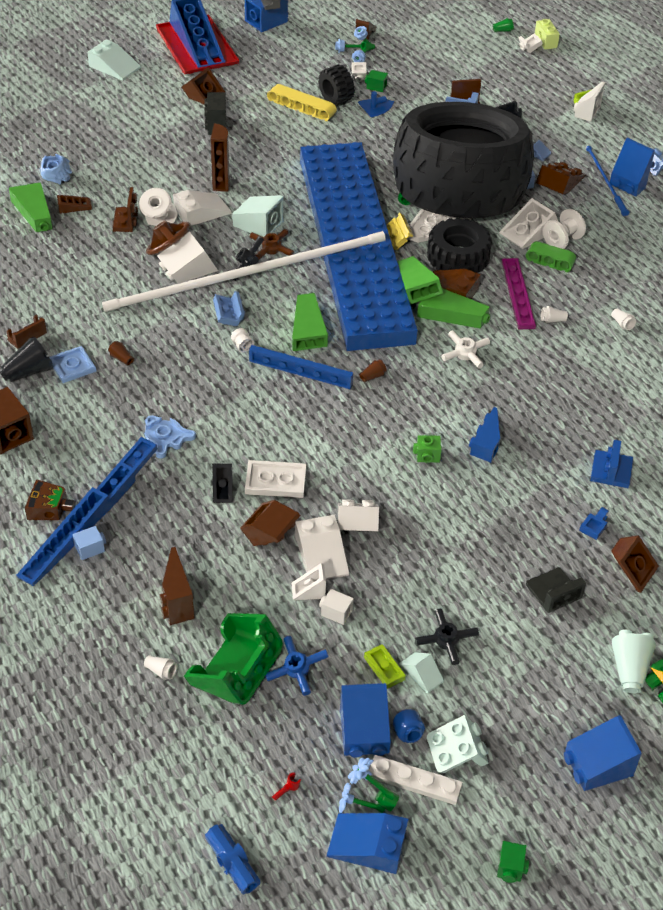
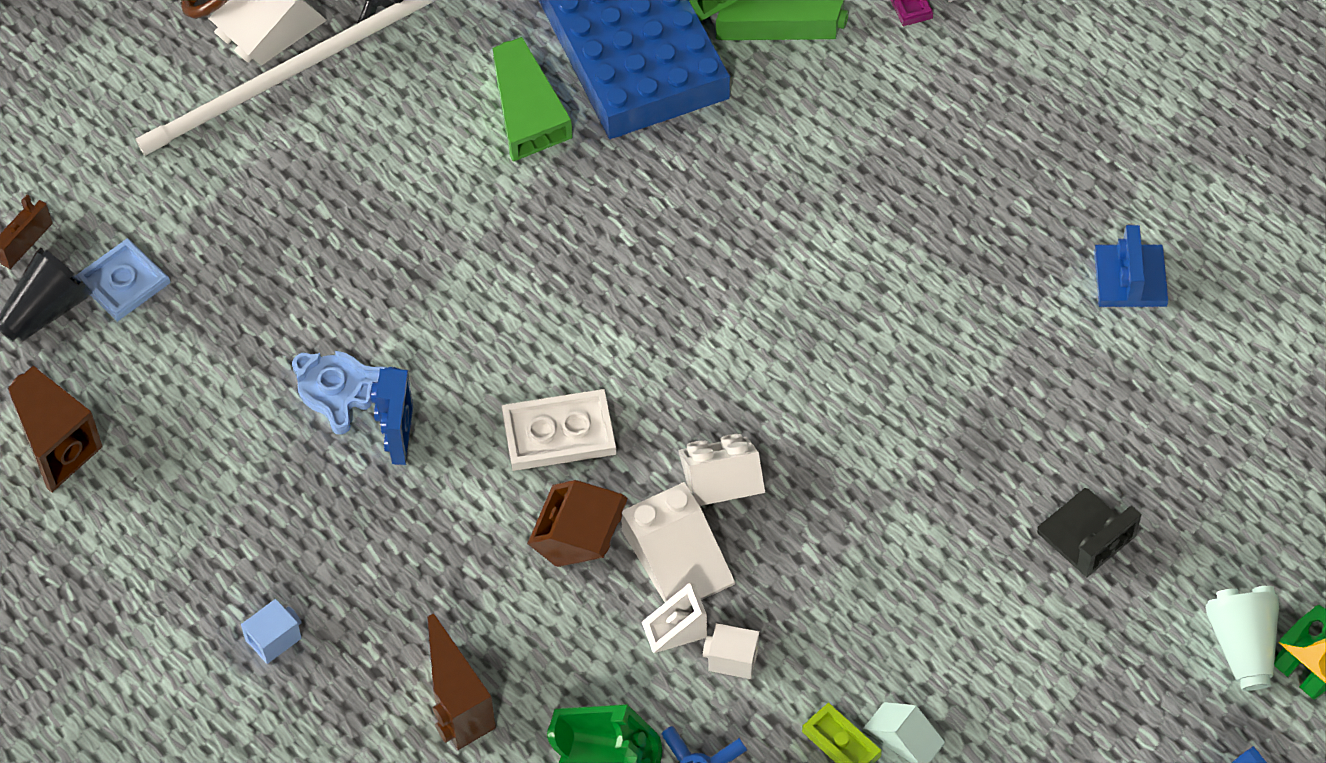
camera: 10 degrees left, 10 degrees up
(47, 502) = (173, 569): reddish brown torso -> none
(88, 512) = (251, 571): blue slope -> none
(119, 351) = (205, 238): reddish brown cone -> none
(190, 449) = (393, 411): none -> blue plate
(222, 482) = (468, 458): black slope -> none
(229, 310) = (374, 101): medium blue bracket -> none
(242, 339) = (416, 160): white wheel -> none
(301, 367) = (539, 194): blue plate -> none
(374, 370) = (670, 172): reddish brown cone -> none
(427, 448) = (808, 311): bright green brick -> none
(447, 636) = (927, 671): black bar -> none
(465, 349) = (822, 91): white bar -> none
(487, 438) = (907, 266): blue slope -> none
(595, 525) = (1127, 392): blue plate -> none
(635, 561) = (1209, 448): reddish brown slope -> none

